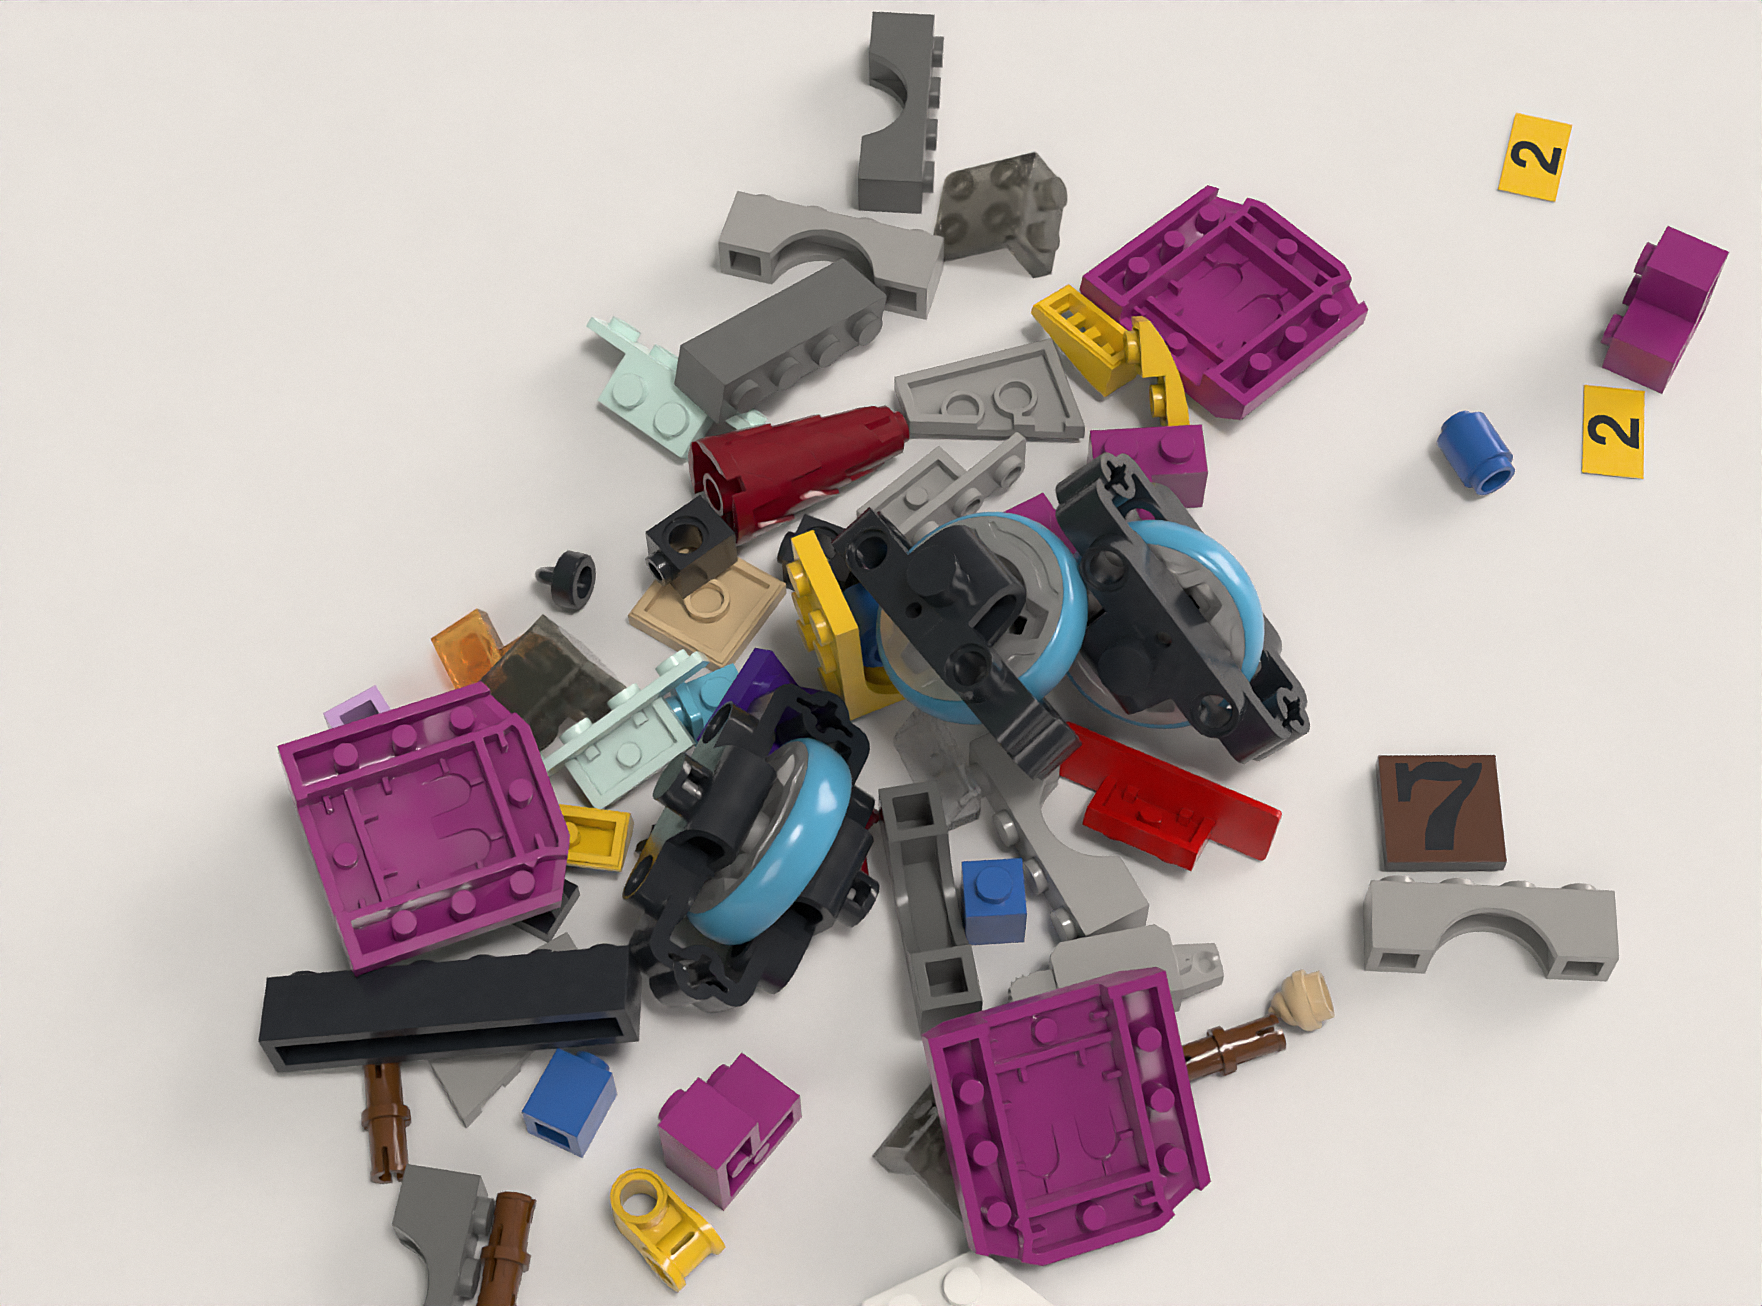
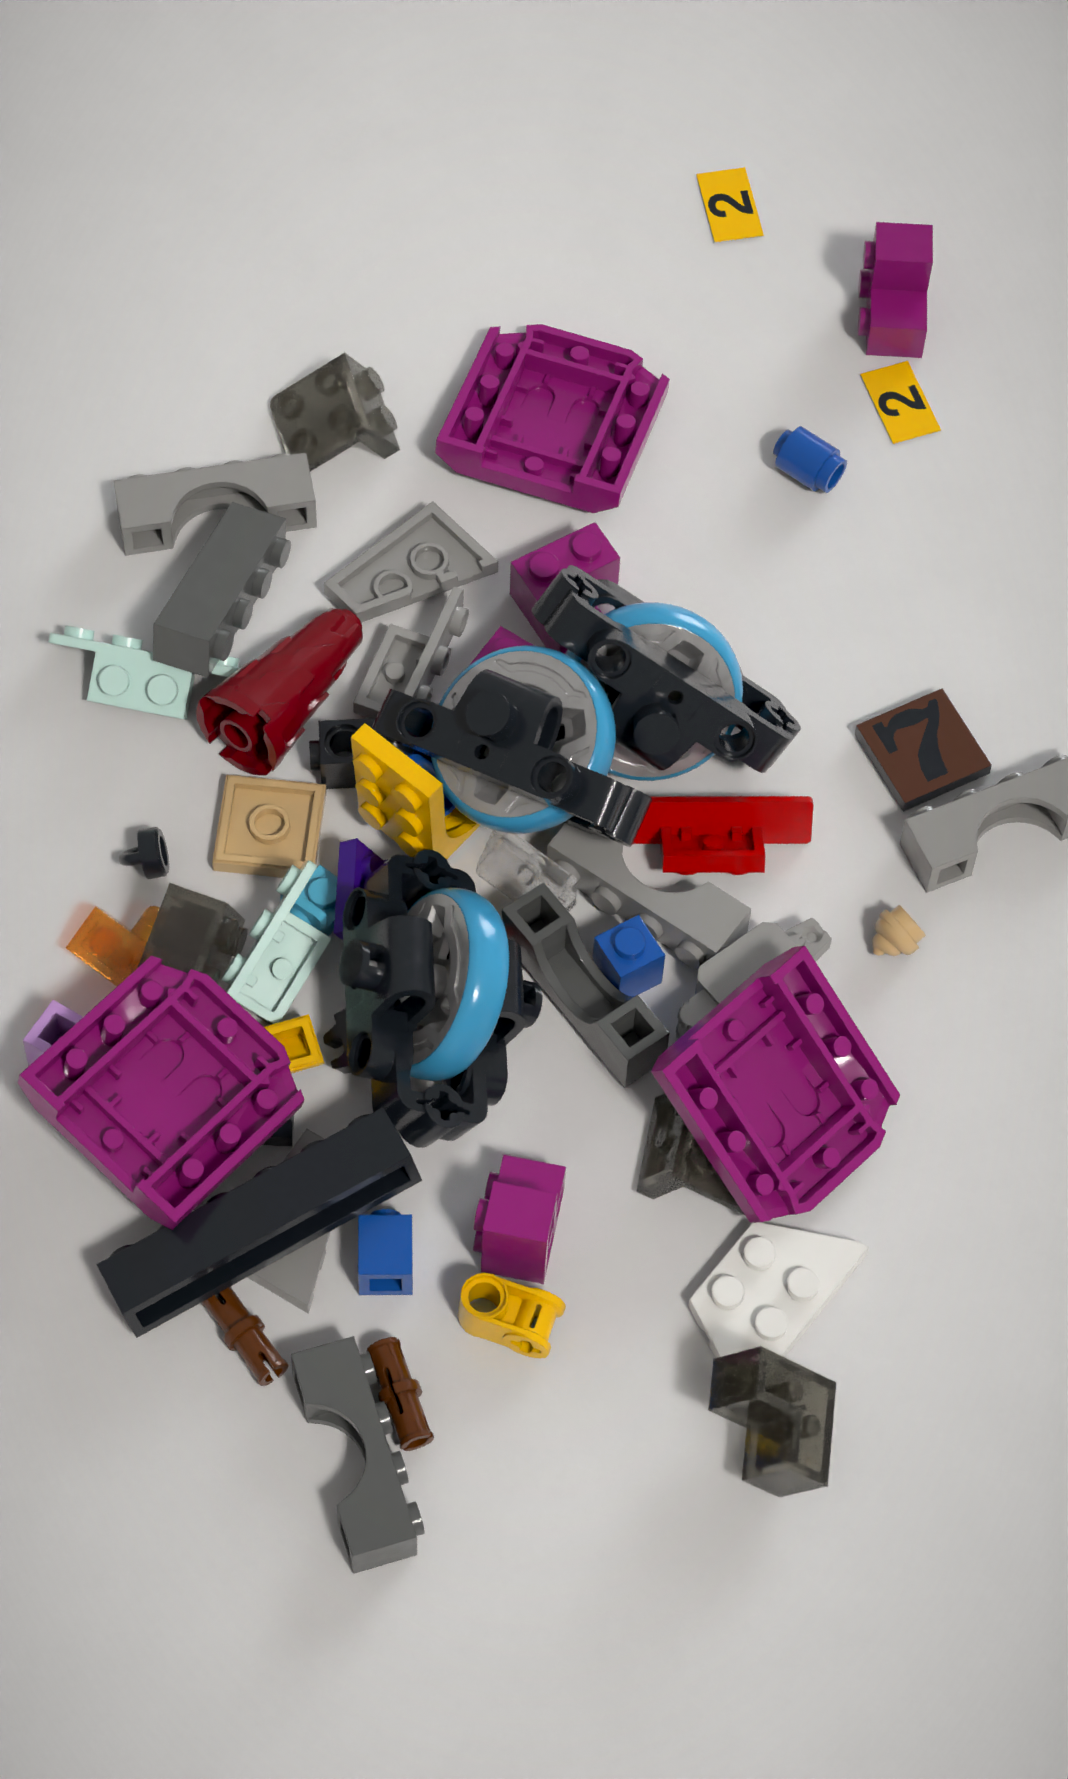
camera: 30 degrees left, 0 degrees up
(690, 526) = (240, 767): black brick -> none
(894, 159) = (186, 321): dark grey arch -> none
(1100, 364) = (477, 492): yellow slope -> none
(1152, 358) = (529, 484): yellow slope -> none
(1227, 1048) = (862, 990): reddish brown pin -> none

